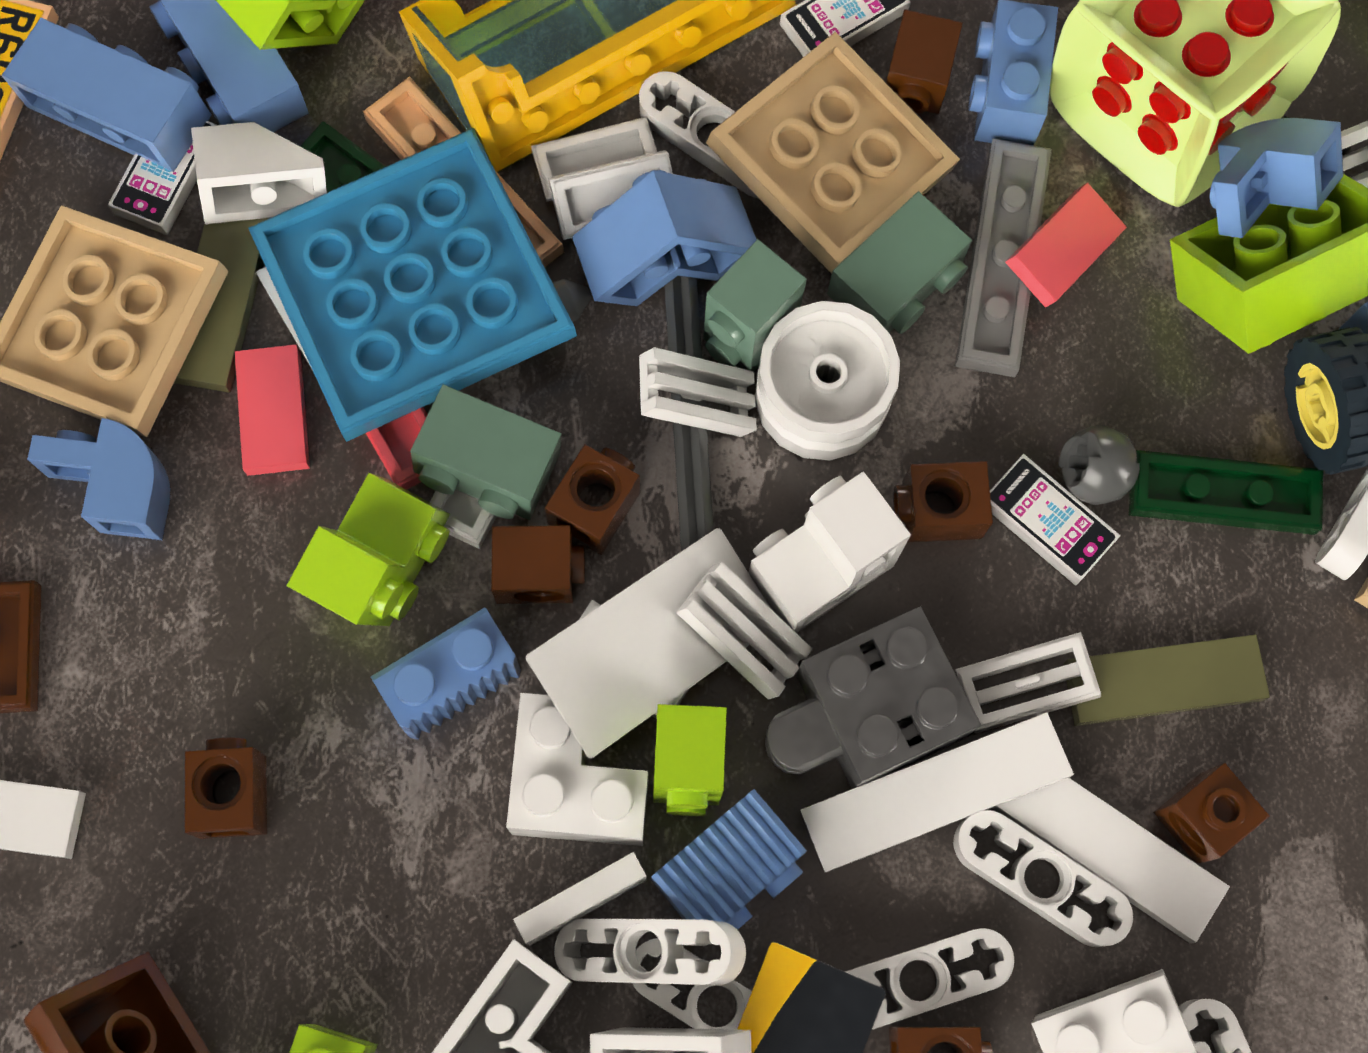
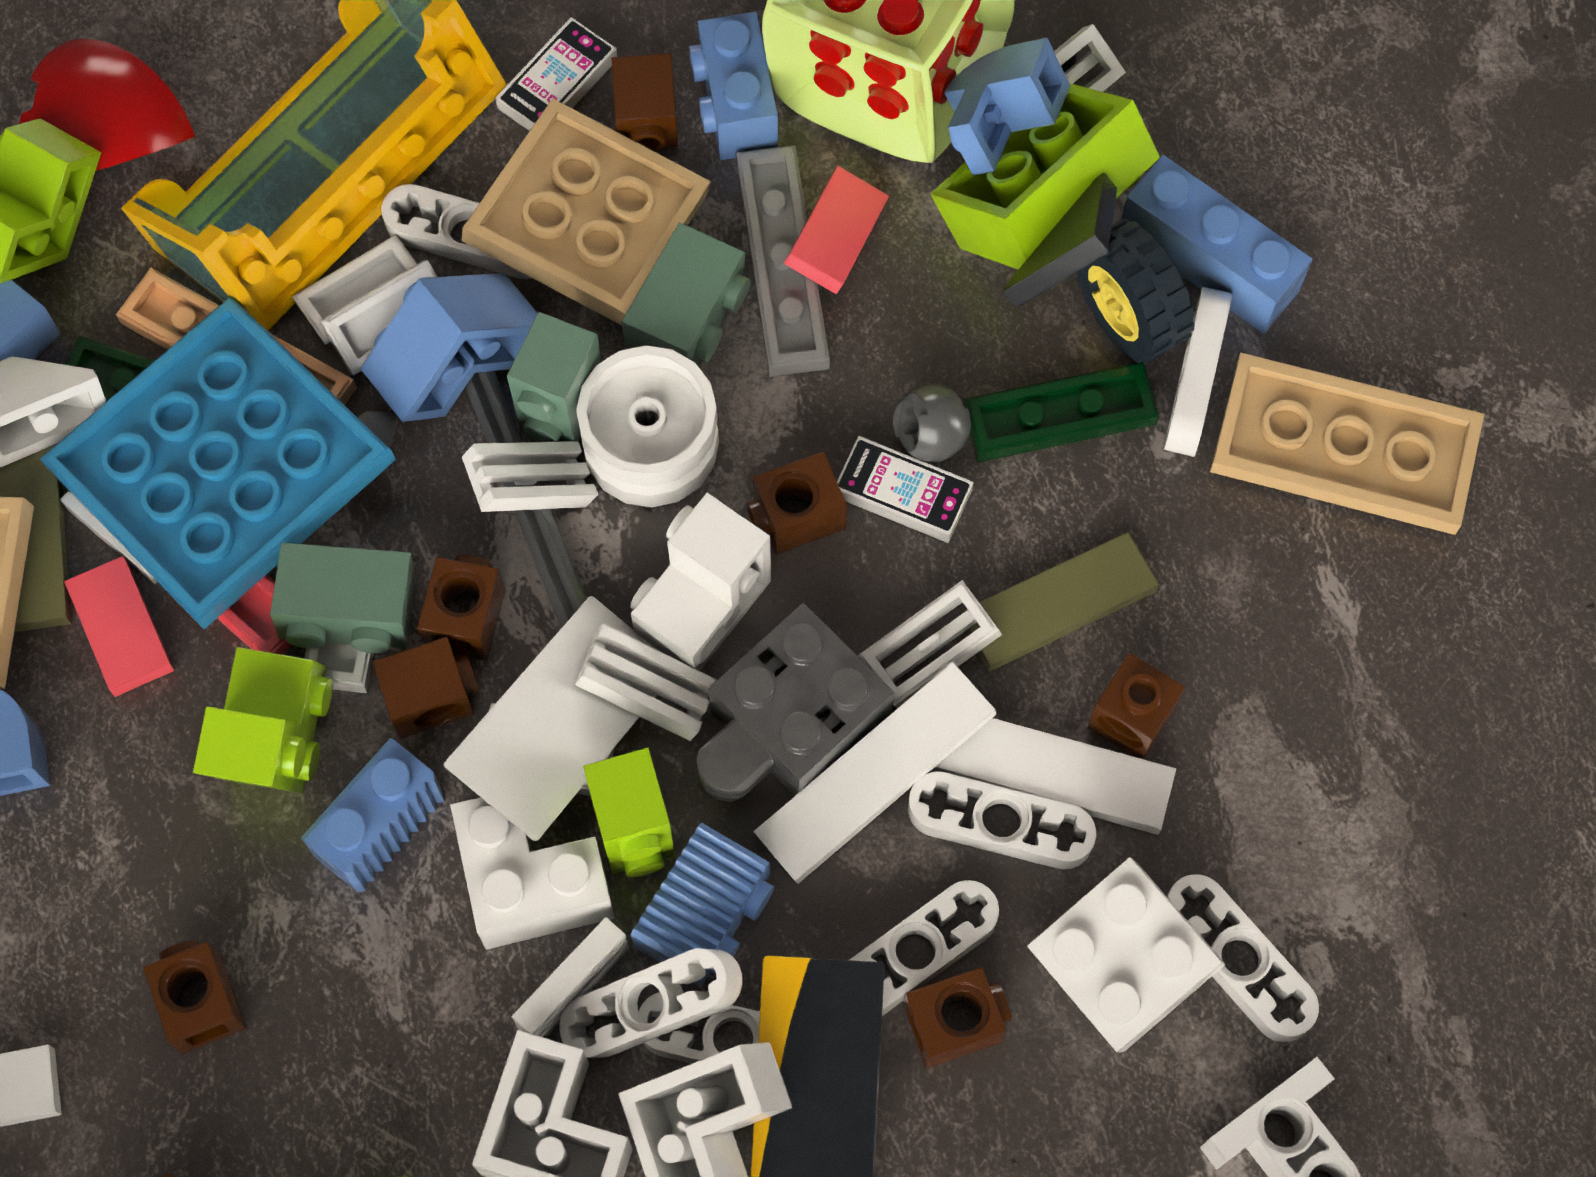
camera: 15 degrees left, 5 degrees down
(1298, 338) = (1070, 245): none -> tile

